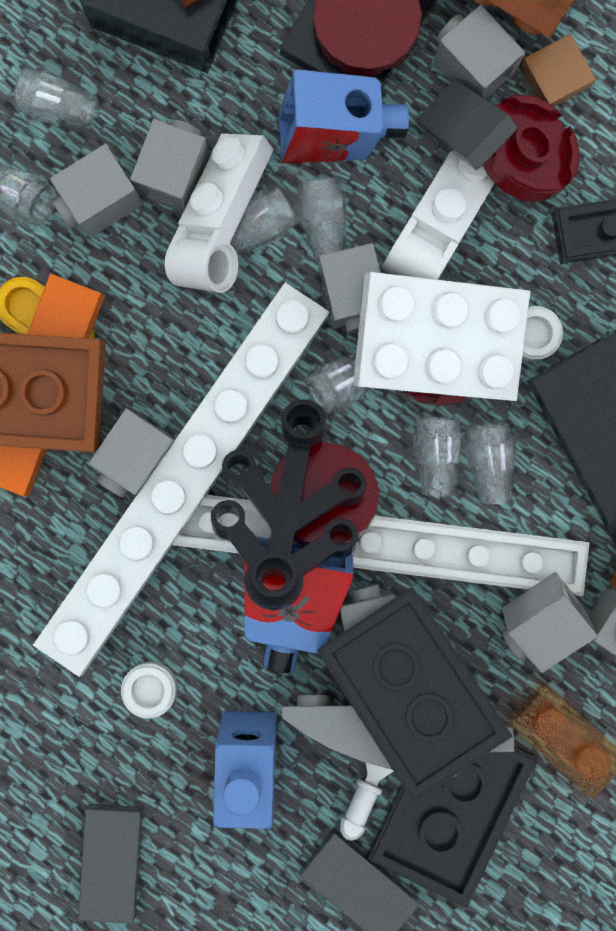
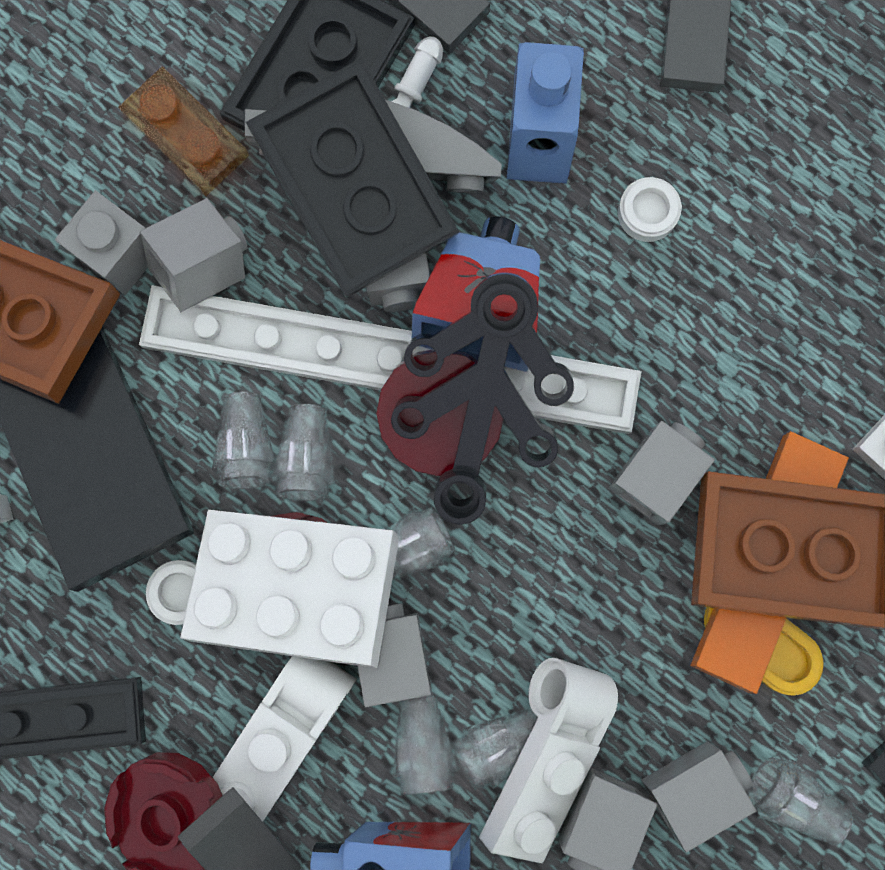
camera: 175 degrees left, 5 degrees down
(181, 481) = (601, 444): white plate -> none

